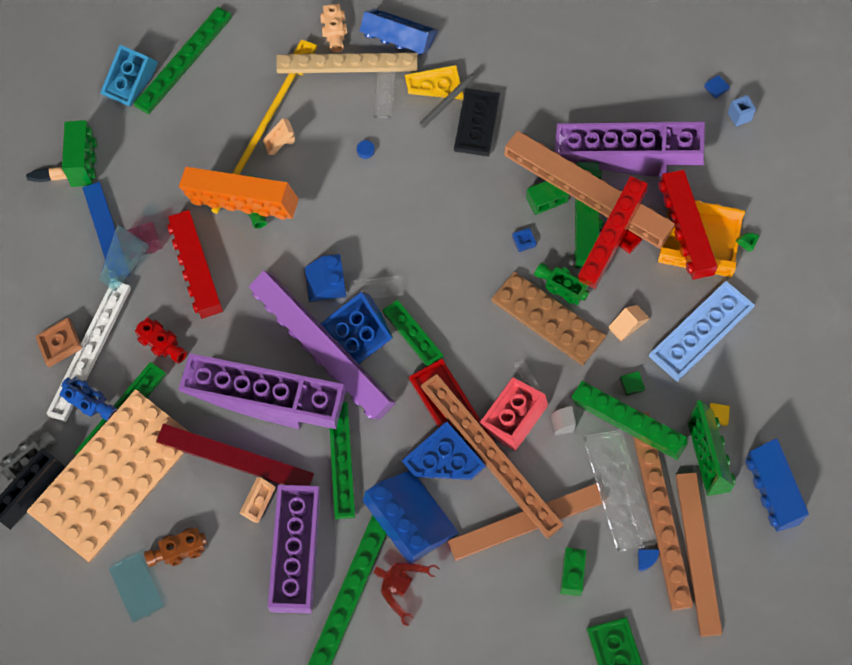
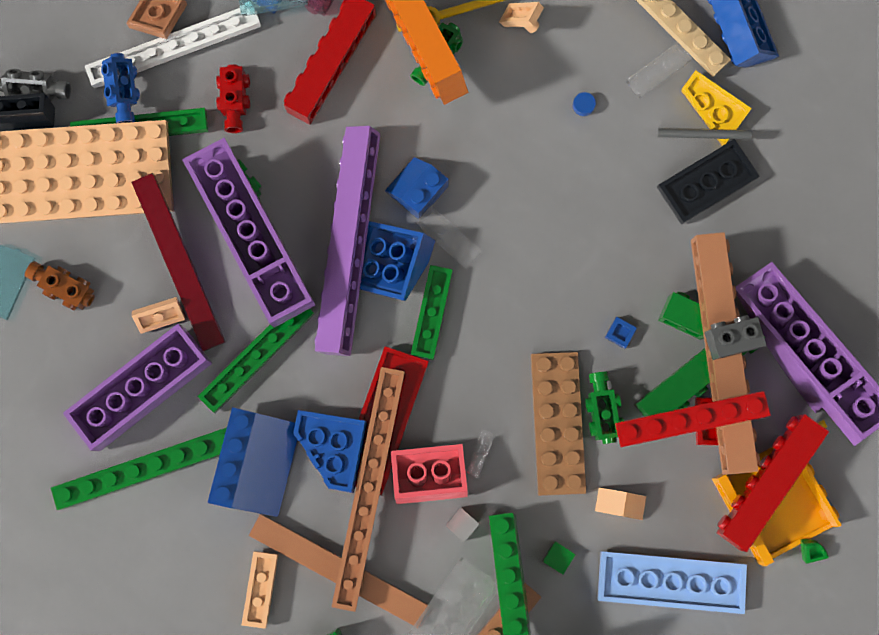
camera: 50 degrees right, 15 degrees up
(397, 582) = (184, 502): clear red piece -> none
(497, 580) = (260, 589): none -> light nougat plate
(585, 171) = (734, 338): none -> dark grey brick

